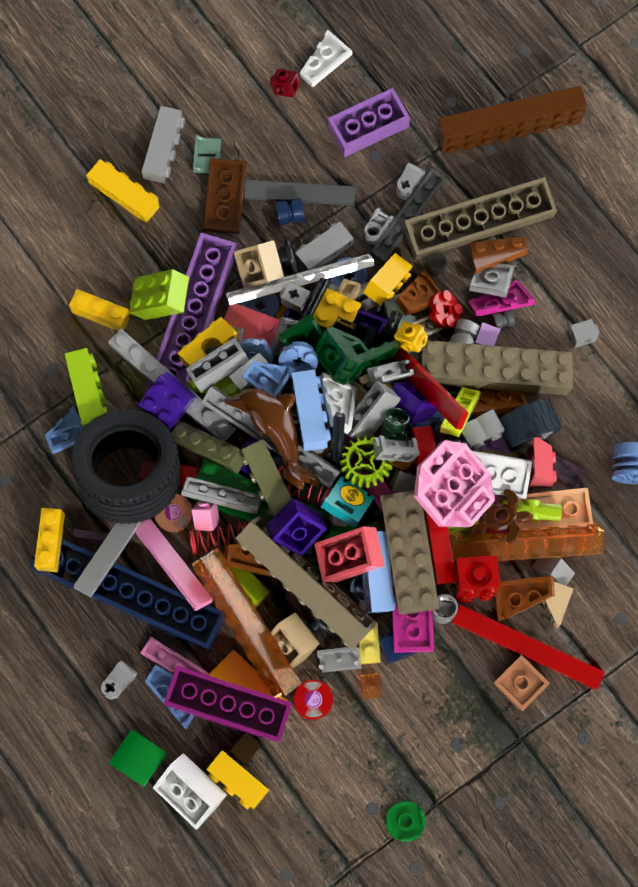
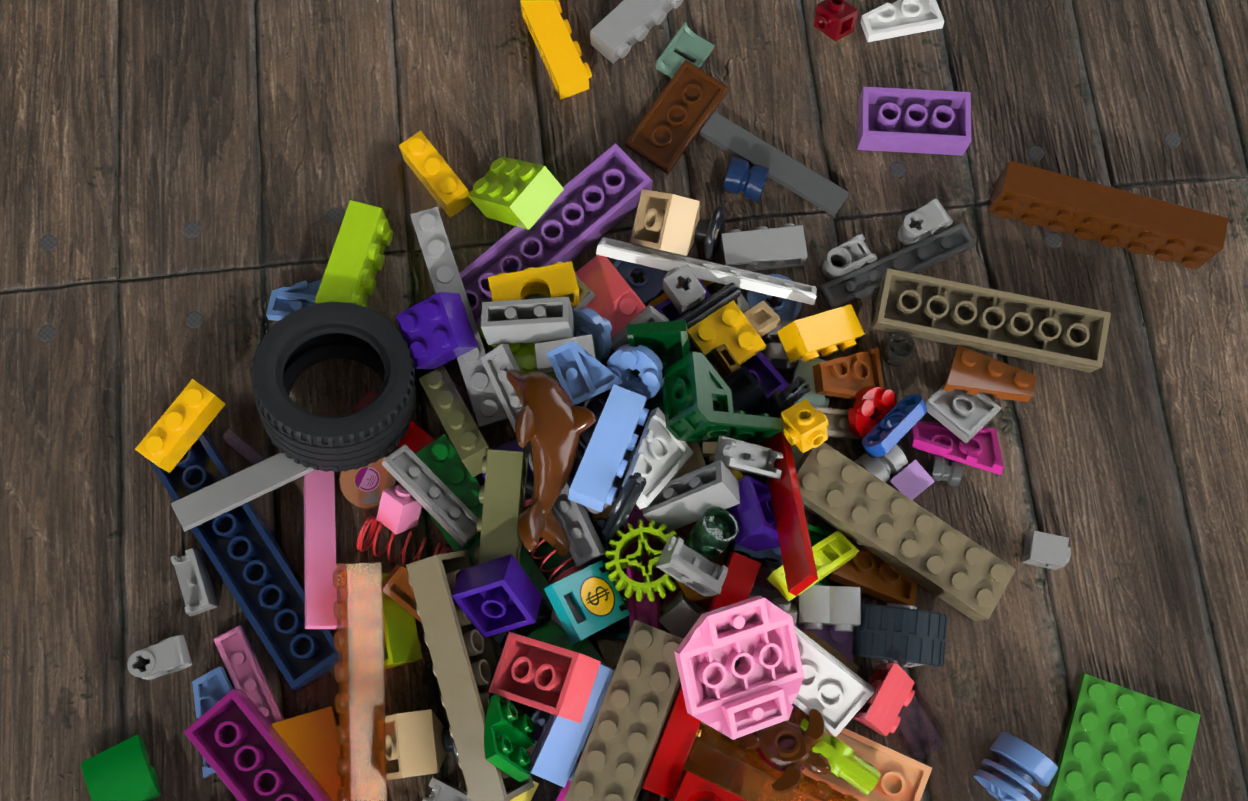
camera: 30 degrees right, 0 degrees up
(108, 628) = (194, 582): none -> light grey hinge
(348, 599) = (507, 738): none -> green slope
(460, 309) = (894, 425): none -> blue beam

